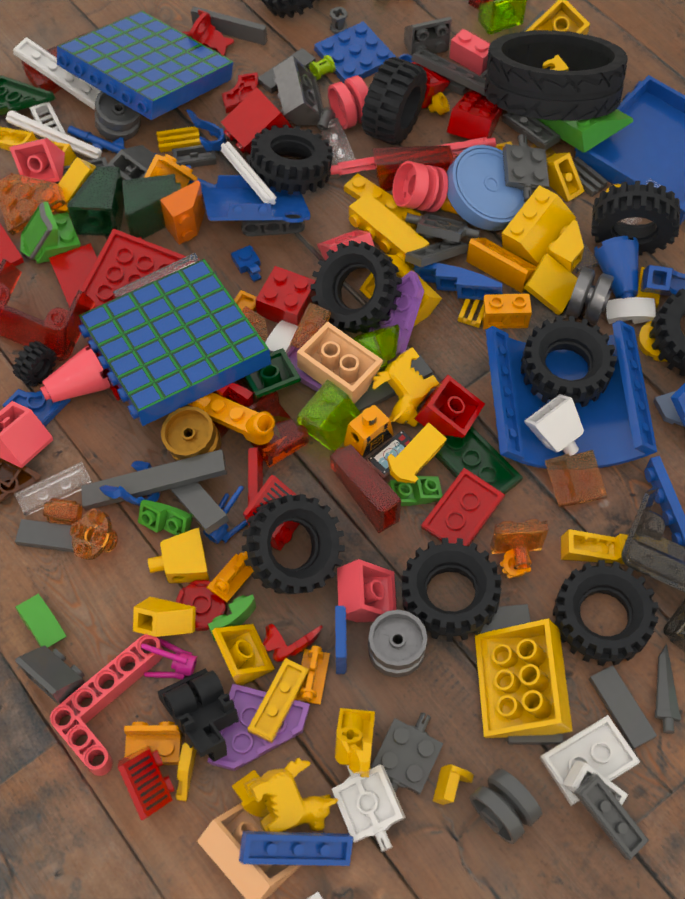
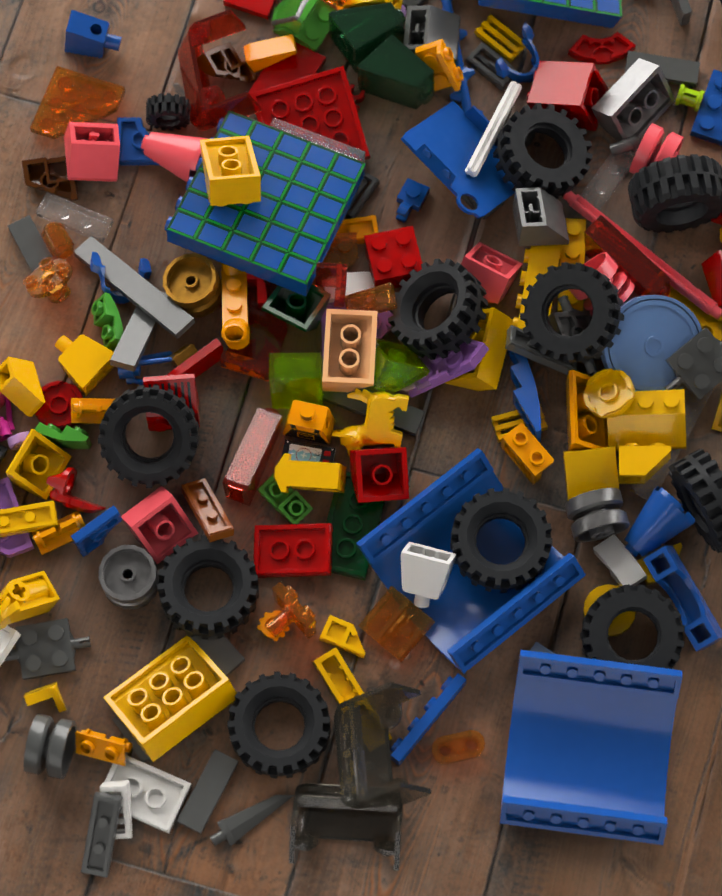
camera: 55 degrees right, 10 degrees up
(34, 305) = (225, 63): none -> reddish brown slope
(53, 271) = (268, 52): none -> light orange slope
(133, 338) = (230, 171): none -> yellow slope
(184, 212) = (410, 106): orange slope -> none
(208, 653) = (17, 440): none -> lavender tile
(239, 478) = (183, 354): none -> pearl gold tile
(281, 330) = (332, 276): none -> clear red panel
(337, 191) = (539, 218): none -> dark grey slope
(386, 546) = (207, 510): none -> dark orange tile
(436, 233) = (604, 319): none -> black tyre
(506, 228) = (609, 393): none -> yellow tile
(537, 760) = (99, 747): none -> light orange hinge
(560, 522) = (342, 635): none -> yellow tile

